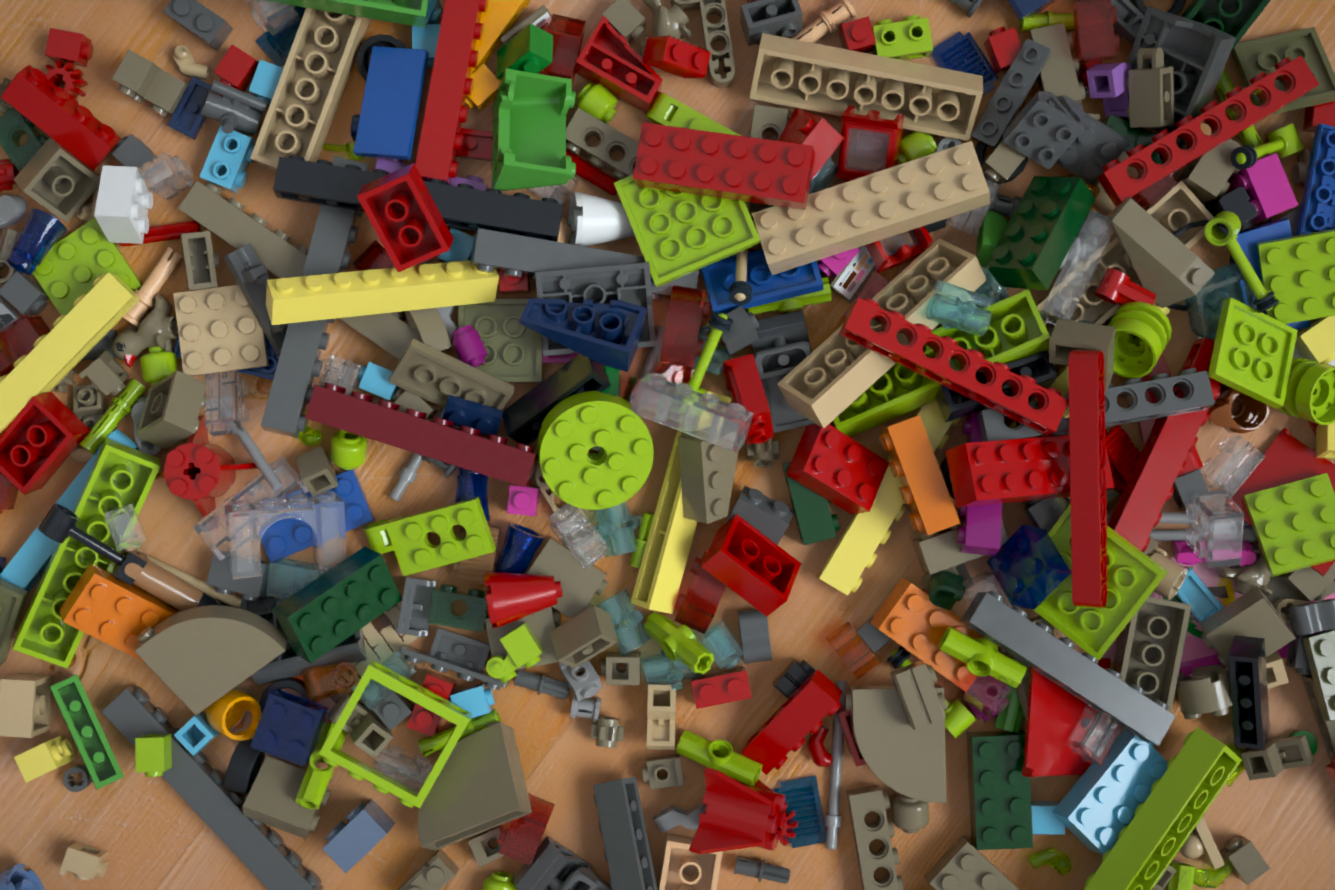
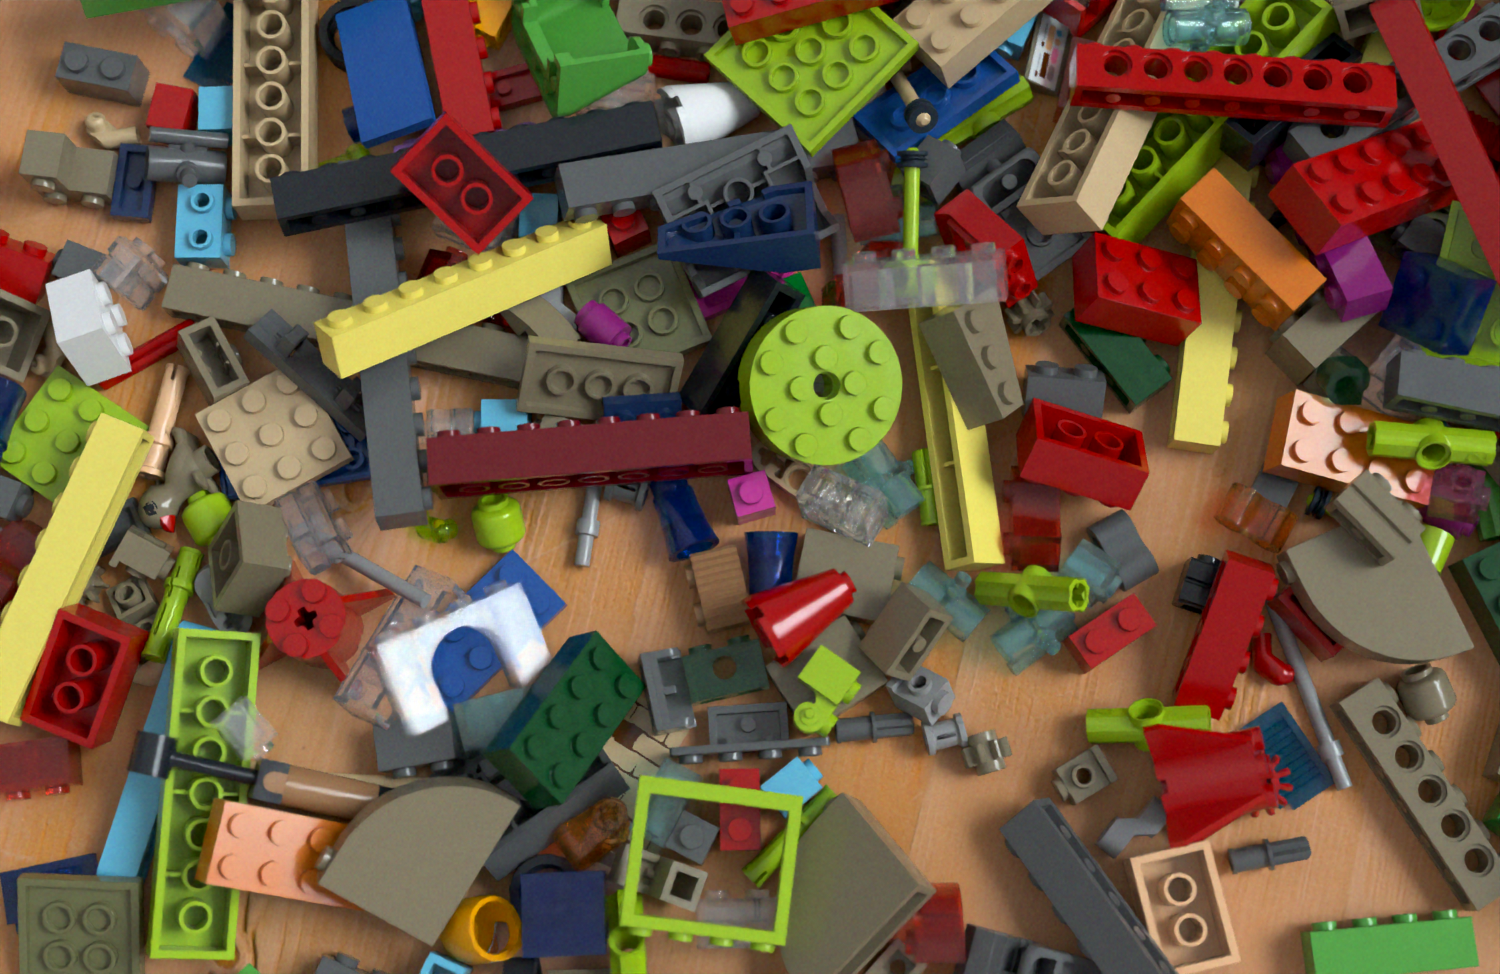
camera: 20 degrees left, 10 degrees down
(317, 471) = (468, 566): dark tan brick -> none
(410, 541) = (623, 598): lime hinge -> none
(630, 676) = (985, 659): dark tan brick -> none
(661, 717) = (1047, 701): tan brick -> none
(835, 264) = (1019, 46): dark pink bracket -> none

